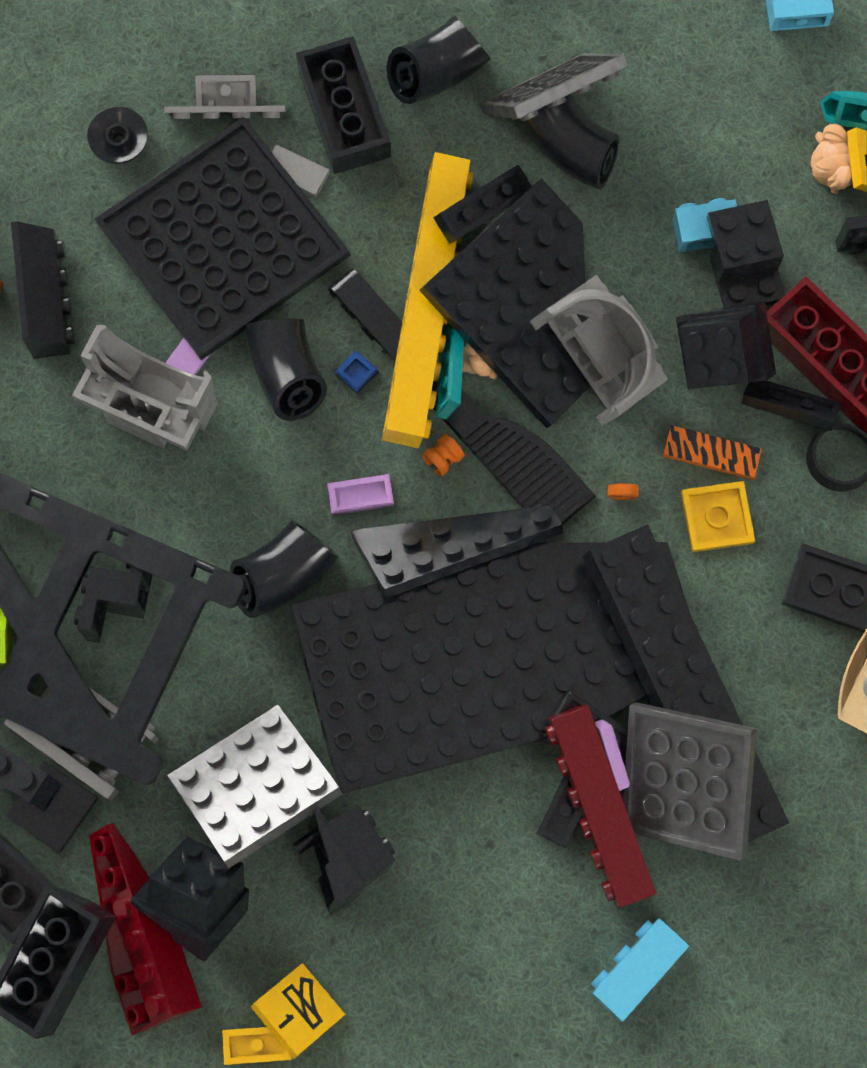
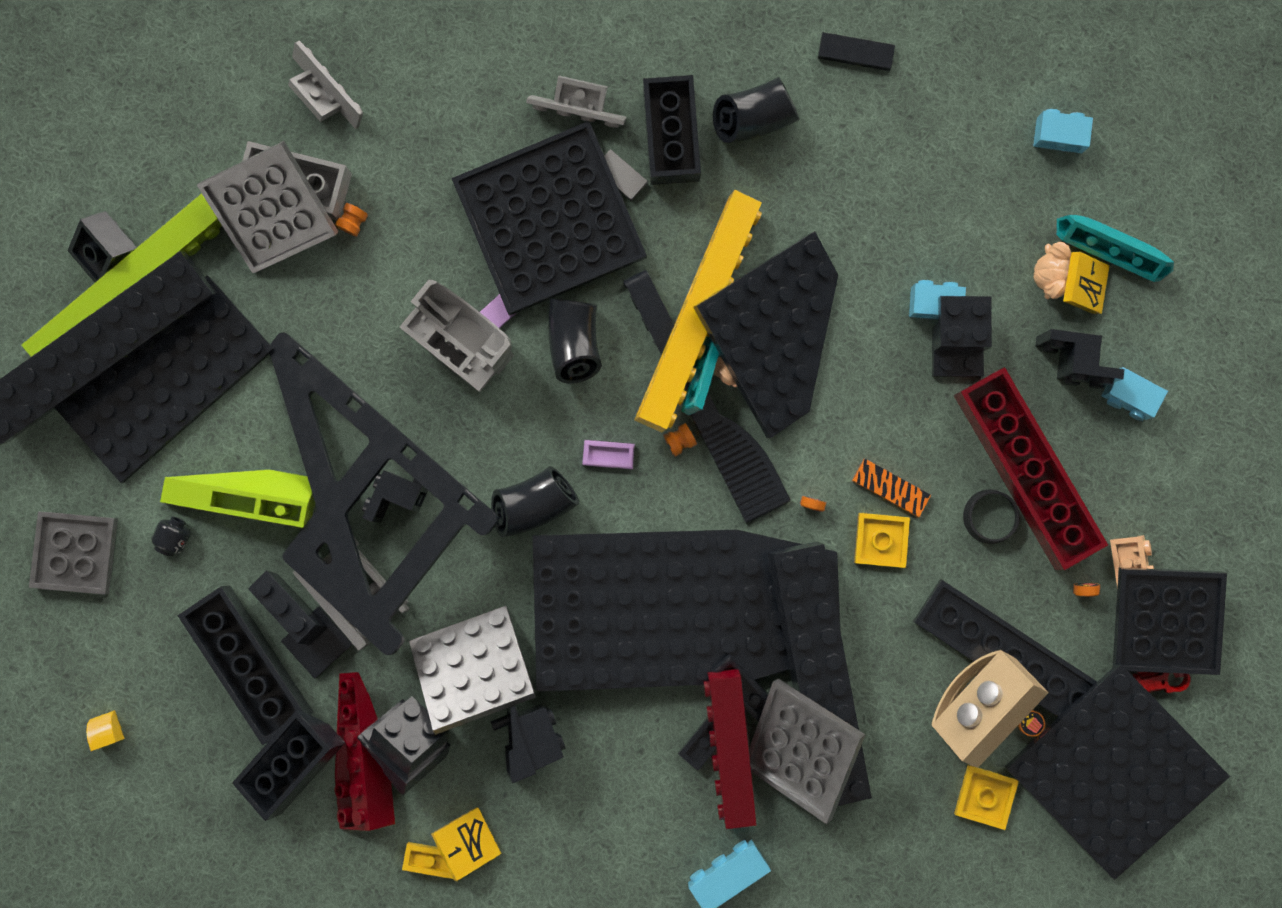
camera: 10 degrees right, 10 degrees up
(42, 290) = (396, 229): black slope -> none
(114, 123) = (483, 100): black dish -> none
(356, 372) = (629, 354): blue tile -> none
(431, 549) = (651, 516): black wing -> none
(482, 204) = (762, 243): black plate -> none
(552, 85) = (844, 158): flat silver plate -> none
(574, 142) = (848, 206): black brick -> none
(606, 345) = (828, 385): light grey piece -> none
(613, 753) = (750, 713): lavender tile -> none
(726, 346) = (925, 409): black piece -> none
(792, 404) = (964, 465): black plate -> none

